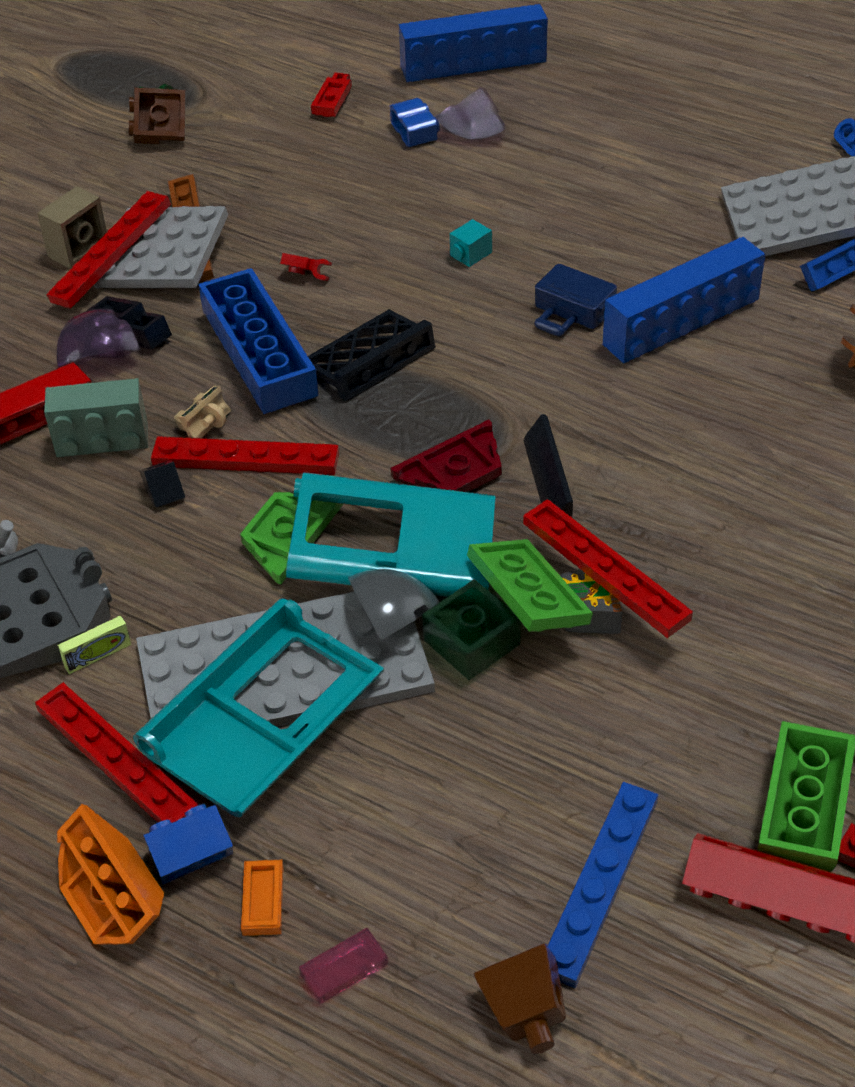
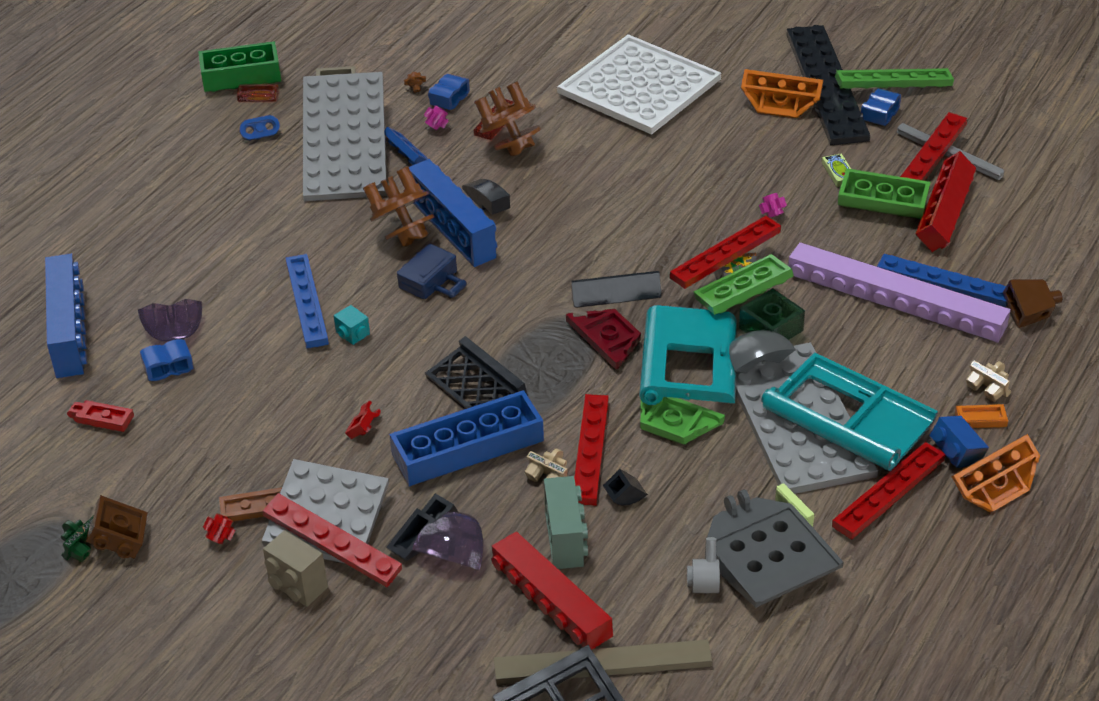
camera: 90 degrees left, 5 degrees down
(151, 179) = (219, 528): none -> red gear
(333, 912) = (991, 376): none -> tan hips
(343, 965) = (1023, 381): clear pink tile -> none
(520, 206) = (307, 301): none -> blue plate
(547, 812) = (899, 292): none -> lavender brick
(670, 235) = (397, 203): none -> dark orange piece
(743, 339) = (488, 195): none -> black slope
(762, 646) = (772, 205): none -> dark pink gear

